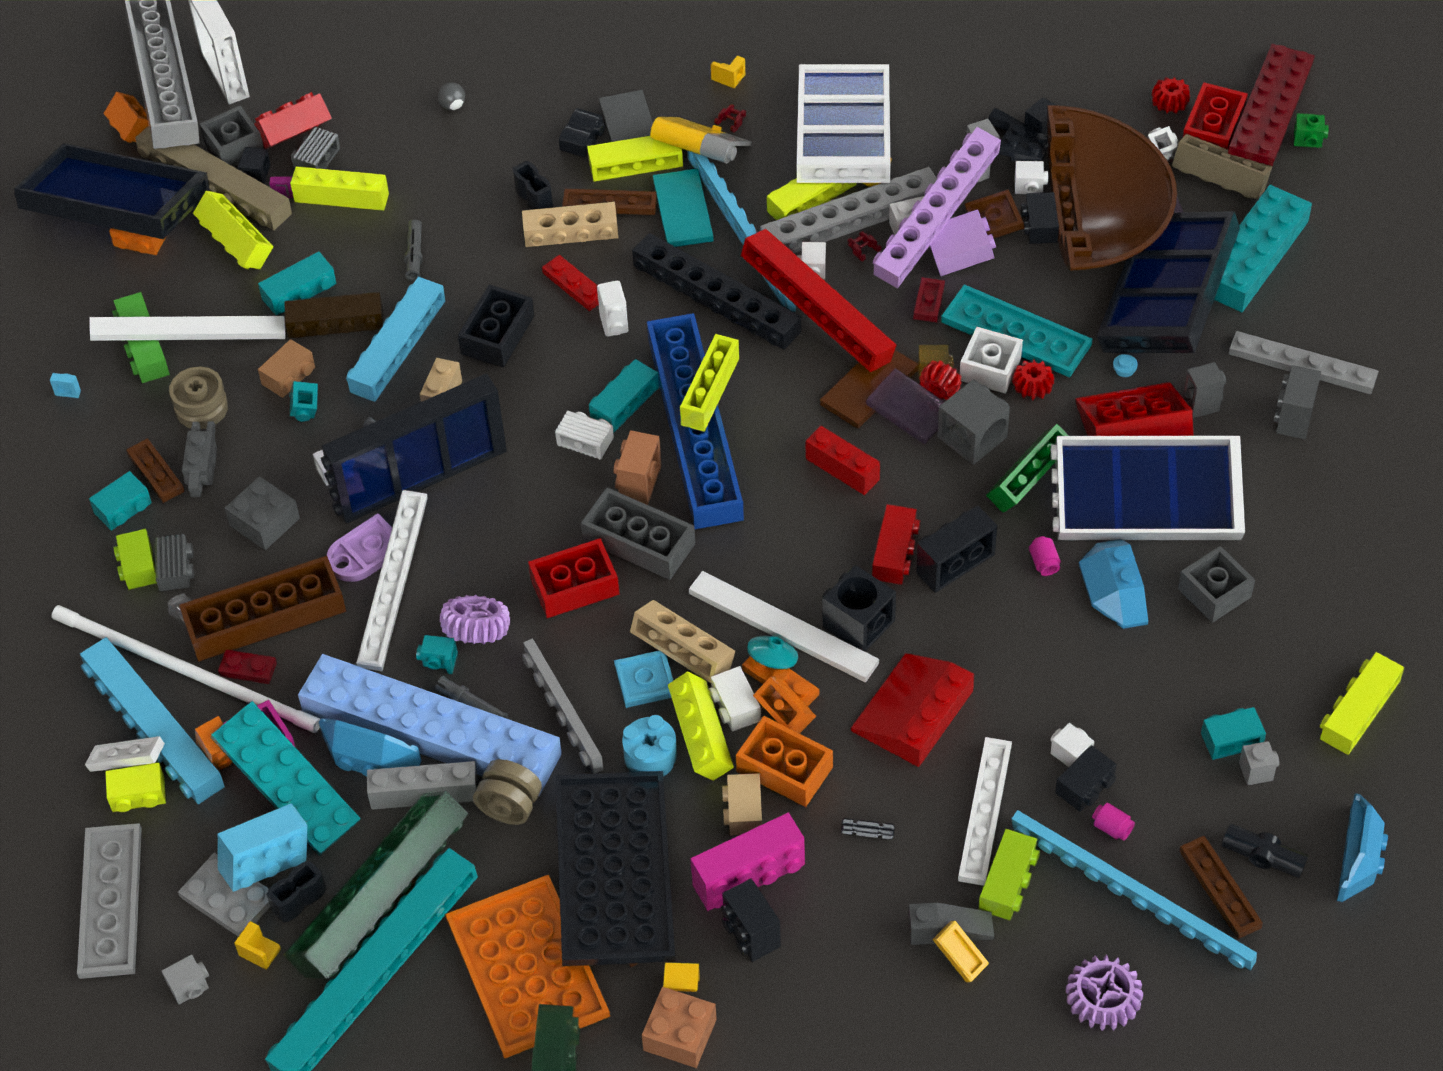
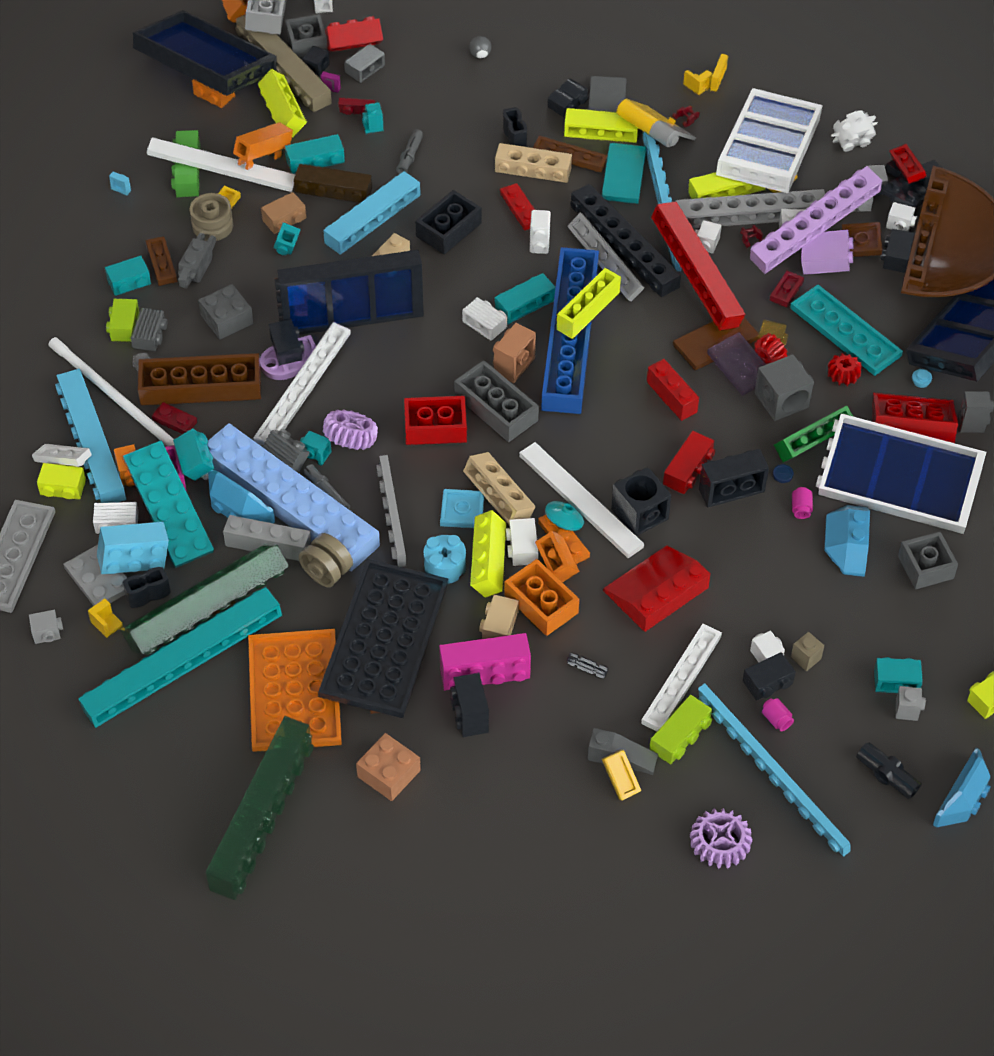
camera: 15 degrees right, 0 degrees up
(210, 361) = (231, 194): none -> yellow plate
(221, 813) = (114, 514): none -> white brick
(231, 287) = (261, 143): none -> orange brick
(295, 706) = (193, 454): none -> teal brick
(334, 208) = (353, 106): none -> dark red plate
(339, 188) = (357, 86): neon yellow brick -> none
(353, 219) = (372, 118): none -> teal brick
(353, 531) = (285, 342): none -> black brick
(404, 666) = (286, 449): none -> dark grey brick
(681, 976) = (404, 730): yellow panel -> none
(707, 321) = (608, 258): none -> light grey plate
(750, 54) = (719, 72): none -> yellow tile
(938, 85) = (854, 130): none -> white brick
(991, 359) = (816, 345): white brick -> none
(1008, 526) = (783, 473): none -> dark blue piece
(1015, 110) = (907, 163): none -> red plate
(1119, 735) = (807, 651): none -> dark tan brick
(1221, 887) = (843, 787): reddish brown plate -> none

